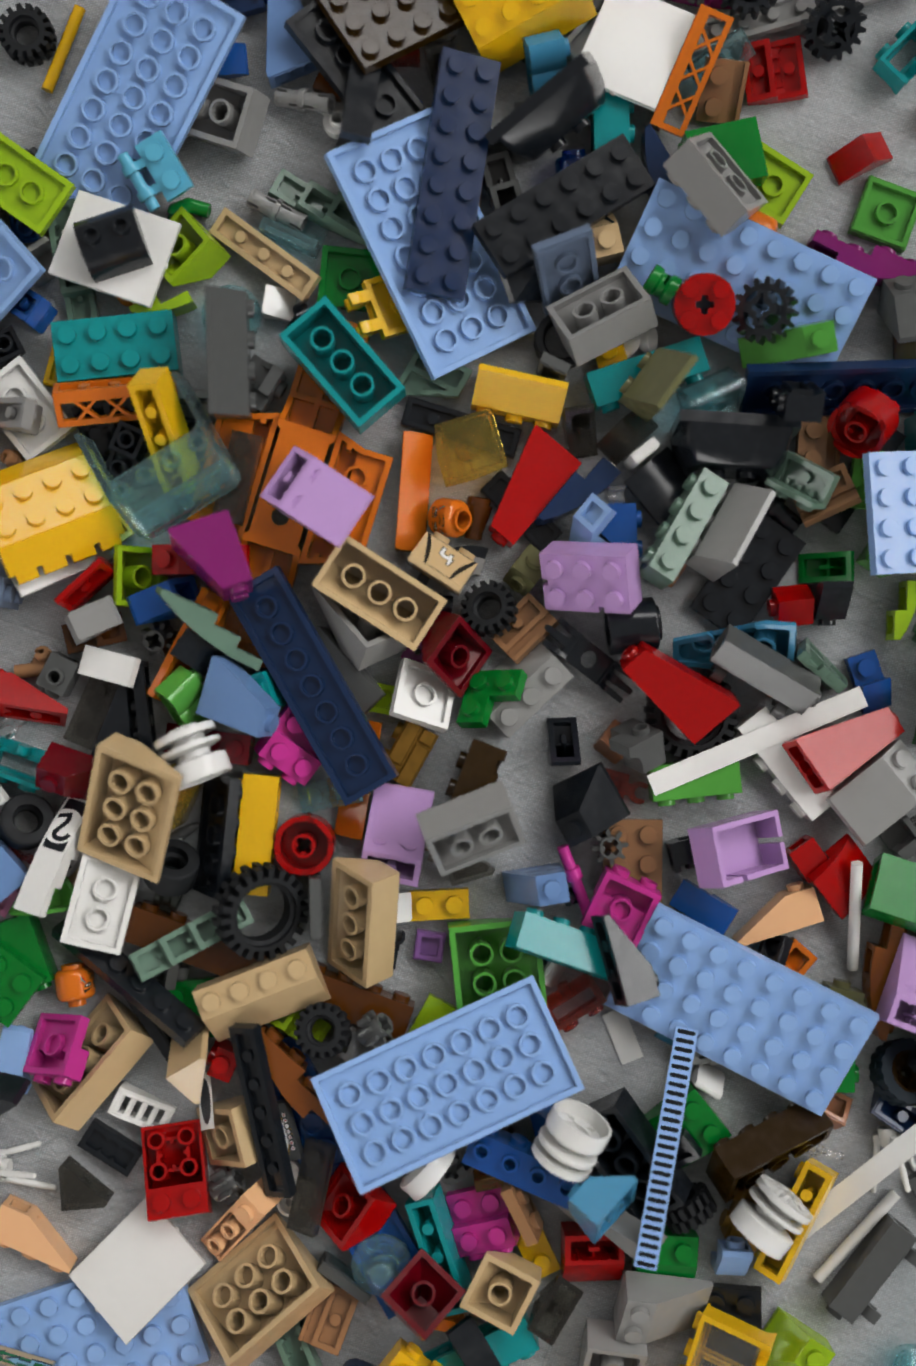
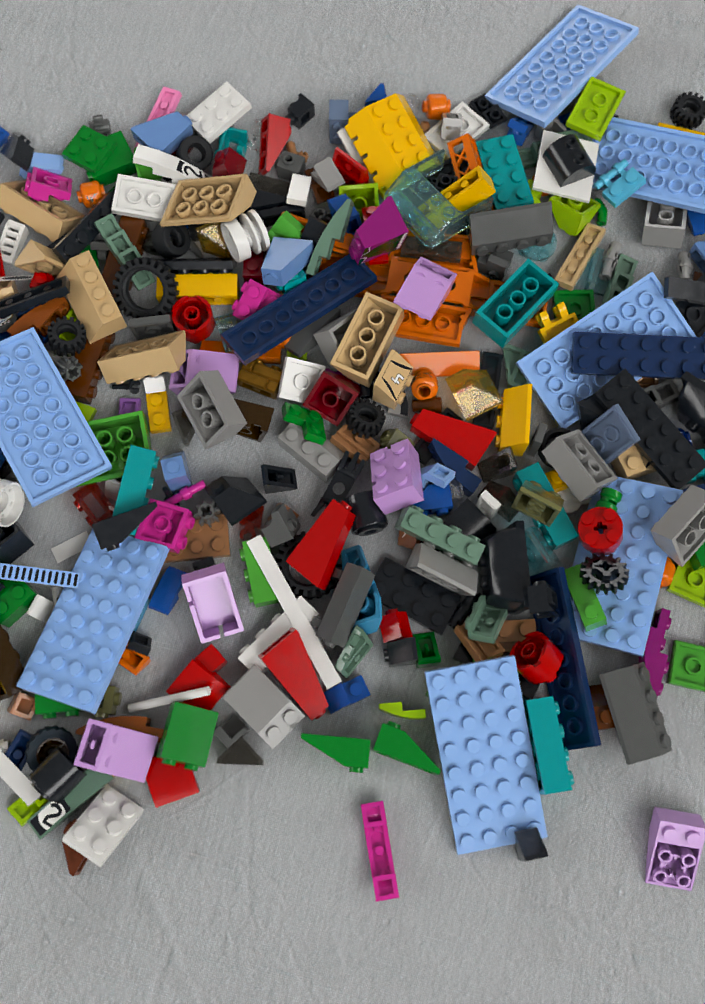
camera: 85 degrees right, 15 degrees down
(278, 303) = (550, 265): white slope -> none
(784, 913) = (169, 653): light nougat slope -> none

